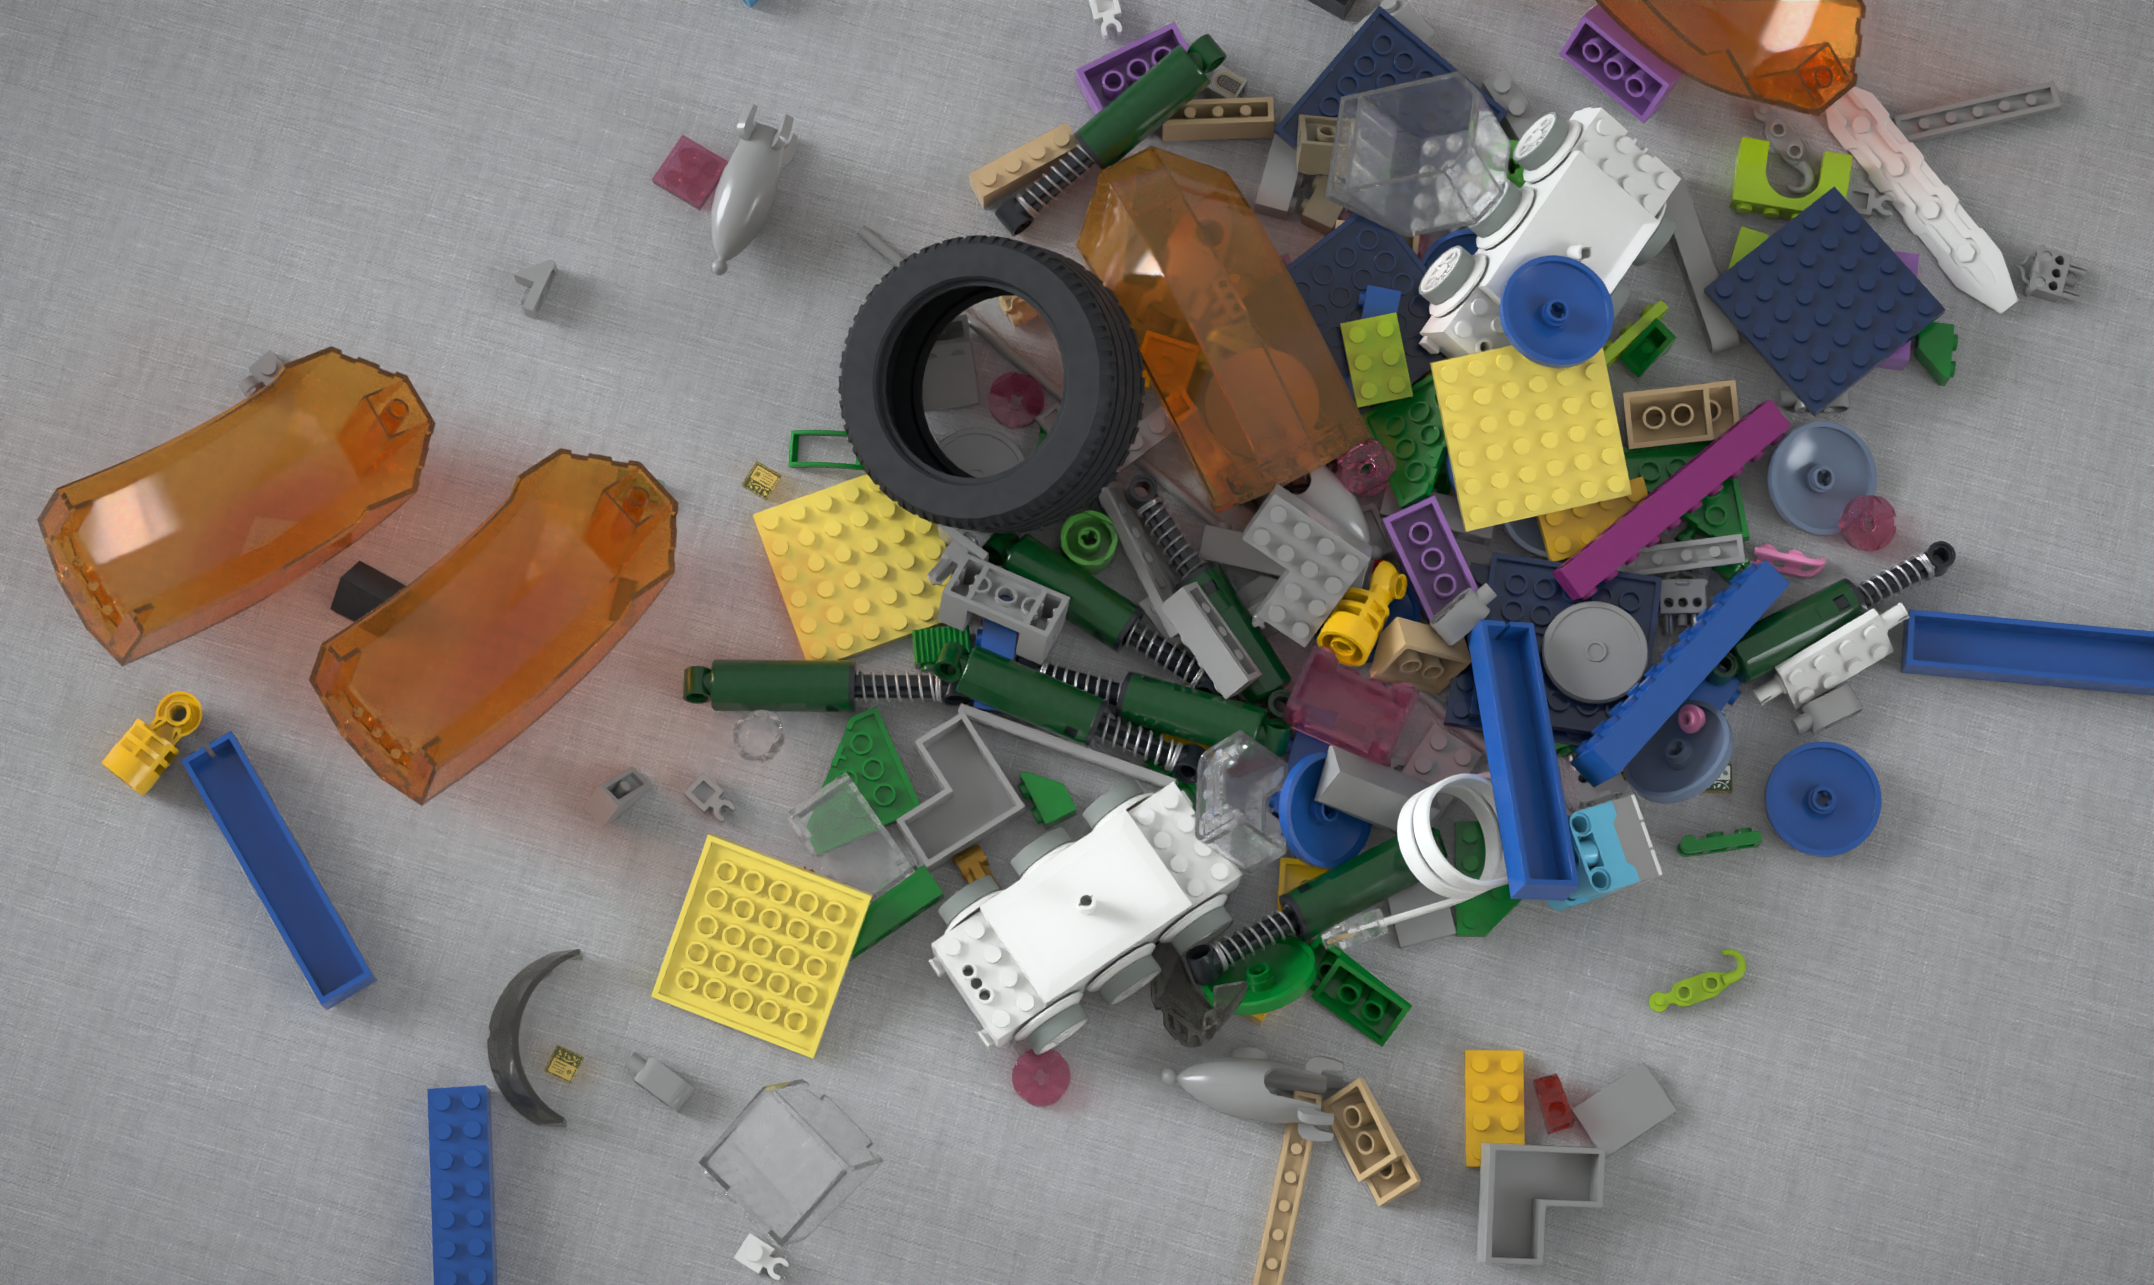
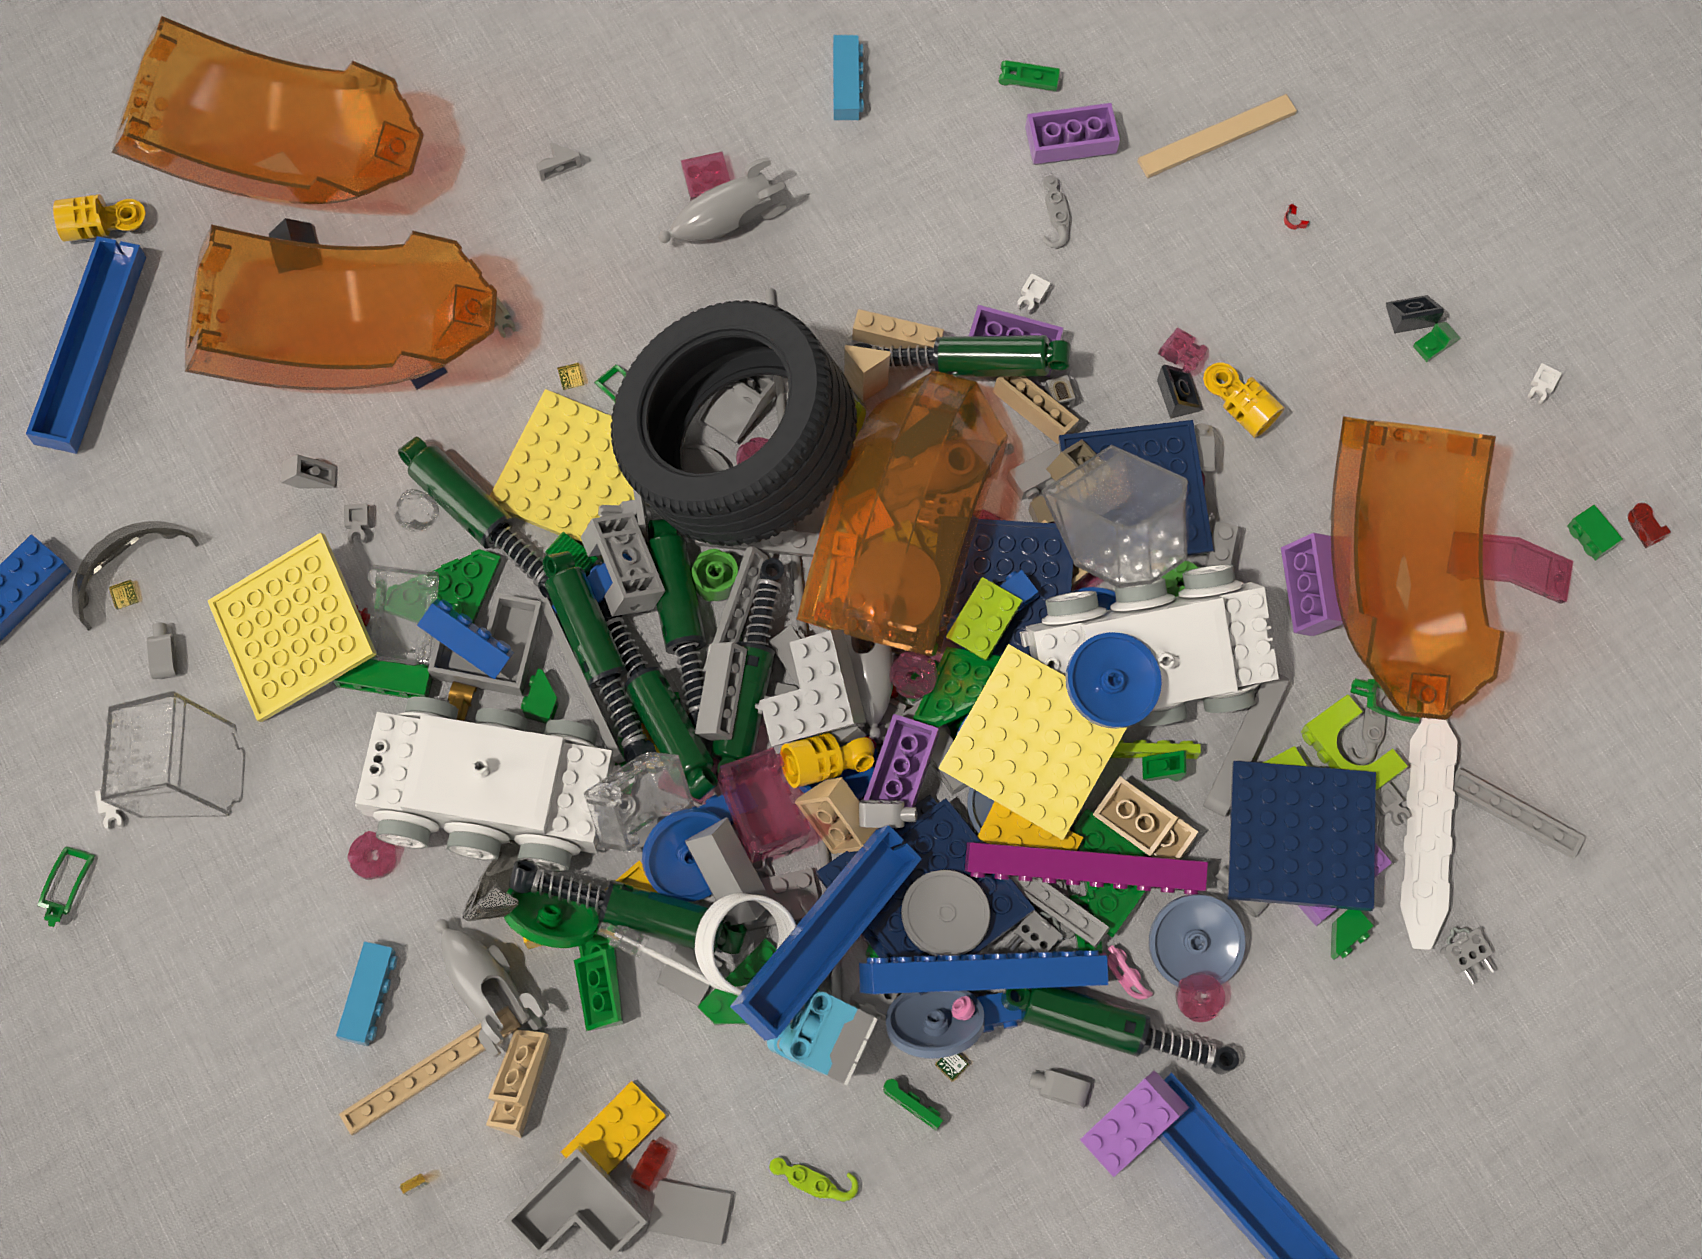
camera: 40 degrees right, 5 degrees down
(935, 806) = (465, 638): none -> blue brick
(1040, 222) = (866, 370): none -> tan slope
(1163, 1195) = (366, 994): none -> dark azure brick
(1757, 111) = (1372, 686): none -> green sword
(1822, 799) = (1002, 1139): blue dish -> none
(1833, 658) = (1094, 1057): white plate -> none
(1921, 681) = (1134, 1123): none -> medium lavender brick

